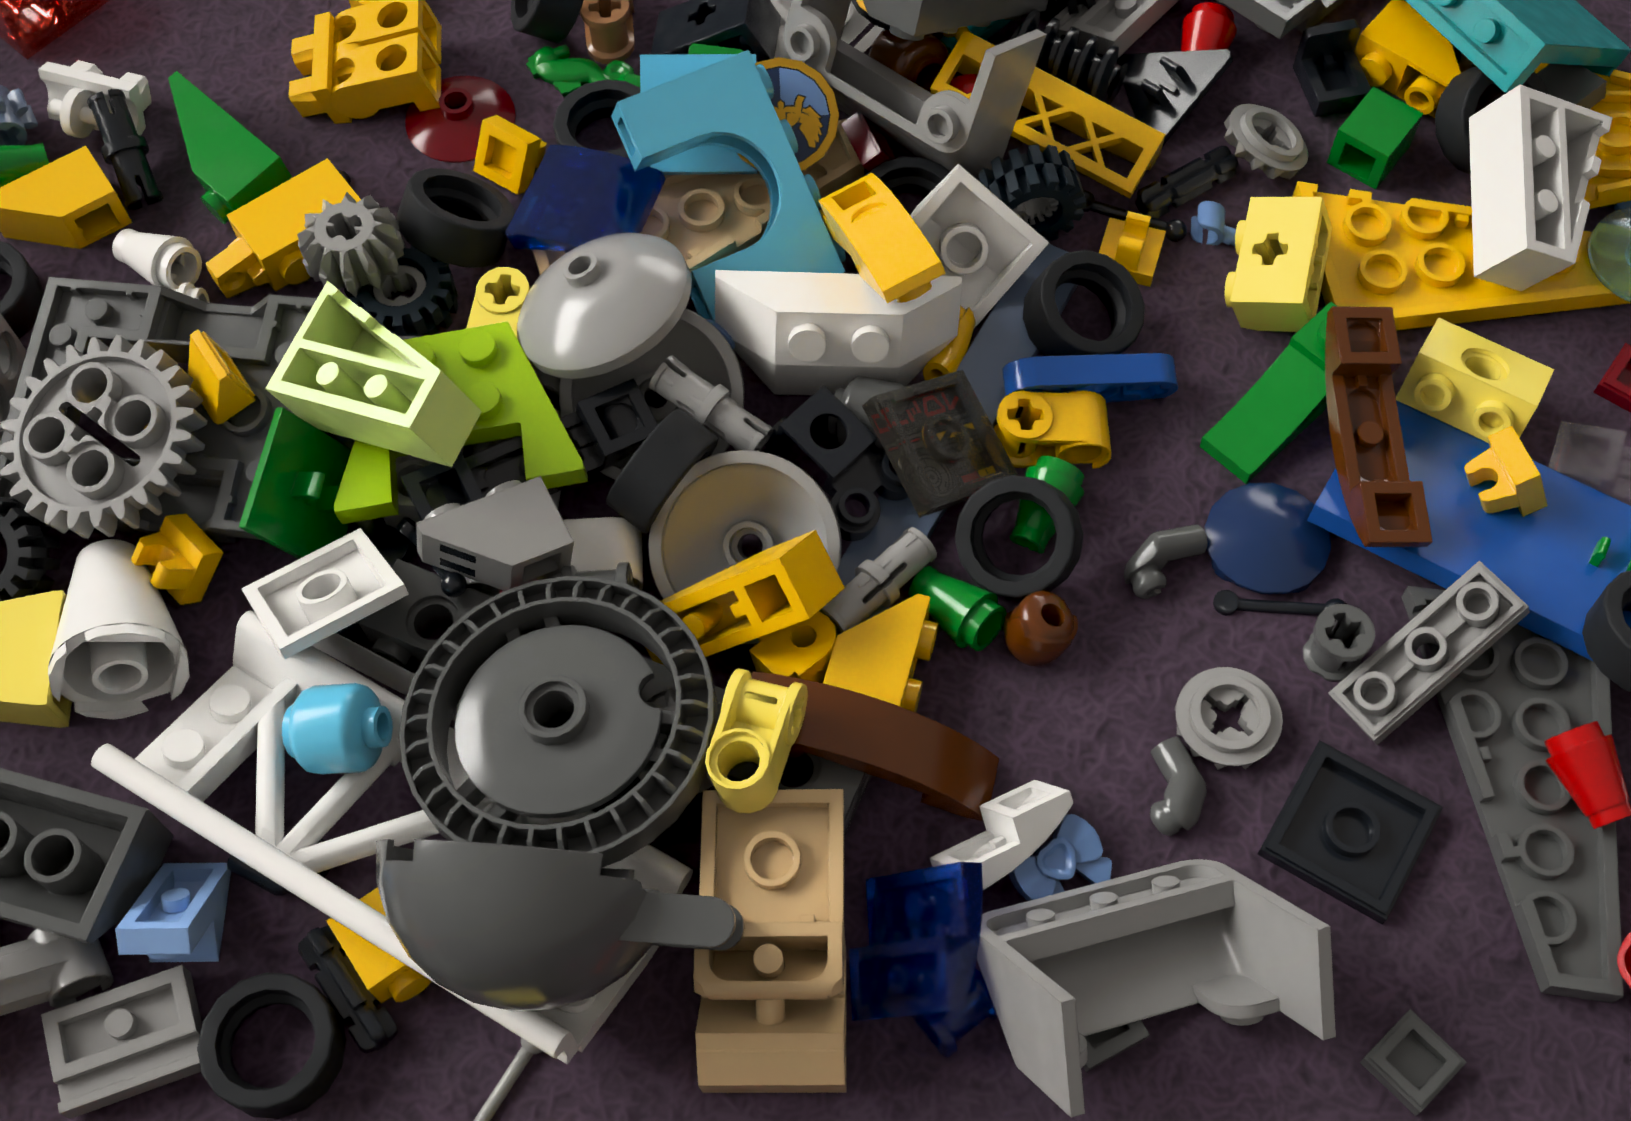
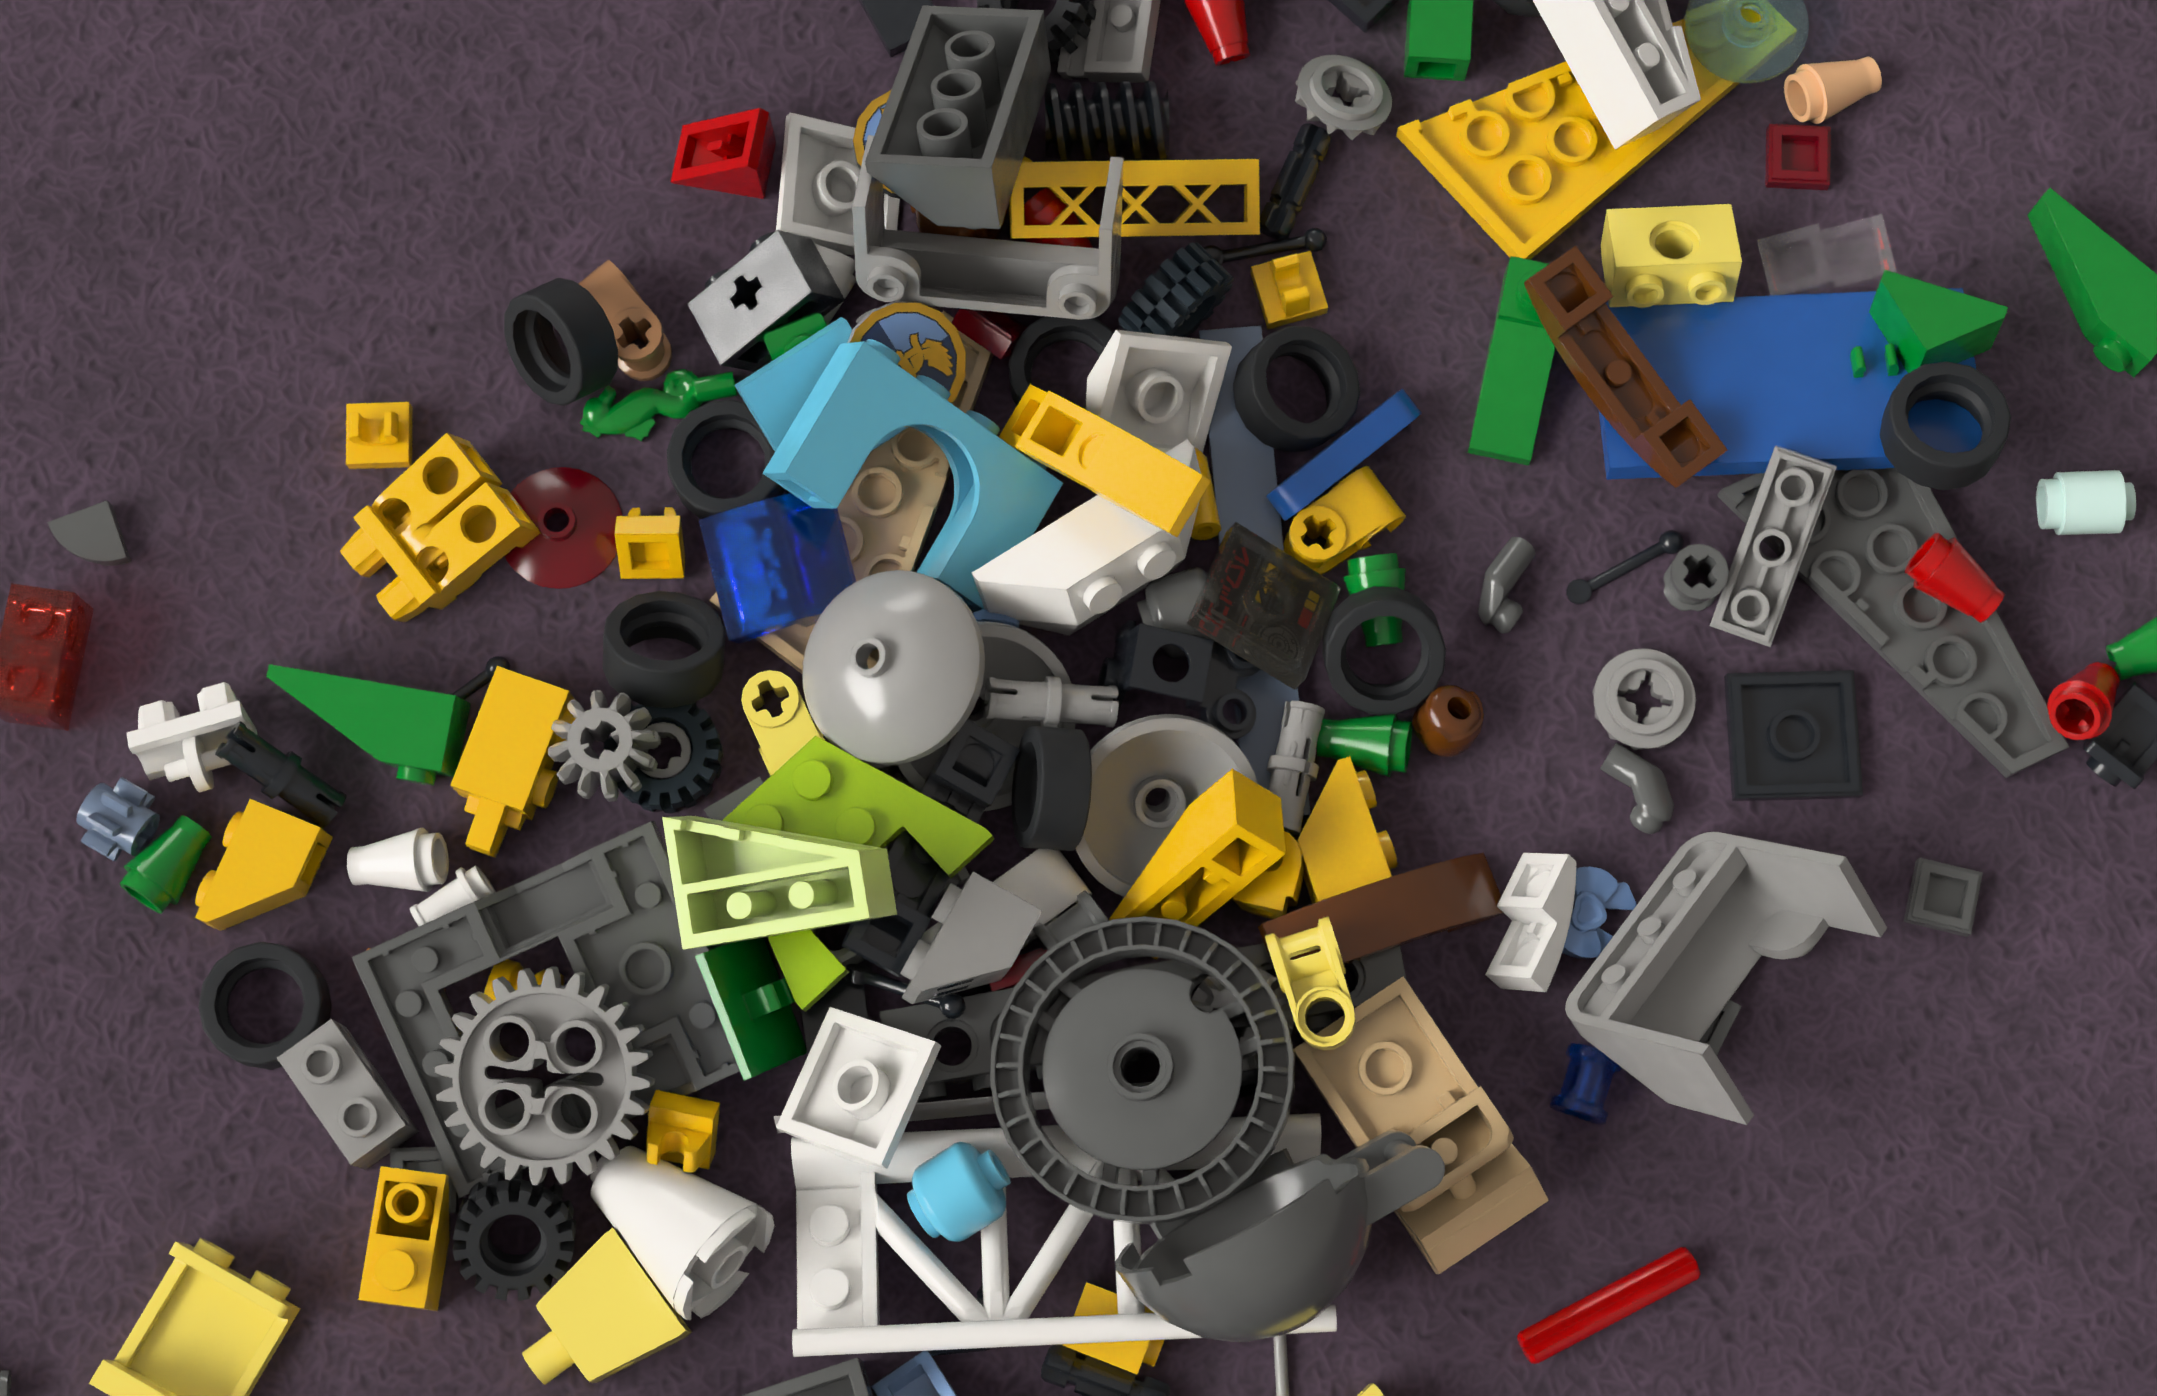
camera: 35 degrees left, 15 degrees up
(217, 378) = (610, 961): yellow slope -> none
(920, 942) = (1532, 1053): clear blue slope -> none
(1171, 84) = (1216, 87): black piece -> none
(1212, 217) = (1342, 213): medium blue hand -> none
(1264, 539) = (1575, 513): dark blue dish -> none
(1279, 263) = (1464, 256): light yellow brick -> none
(1514, 471) = (1758, 338): yellow tile -> none

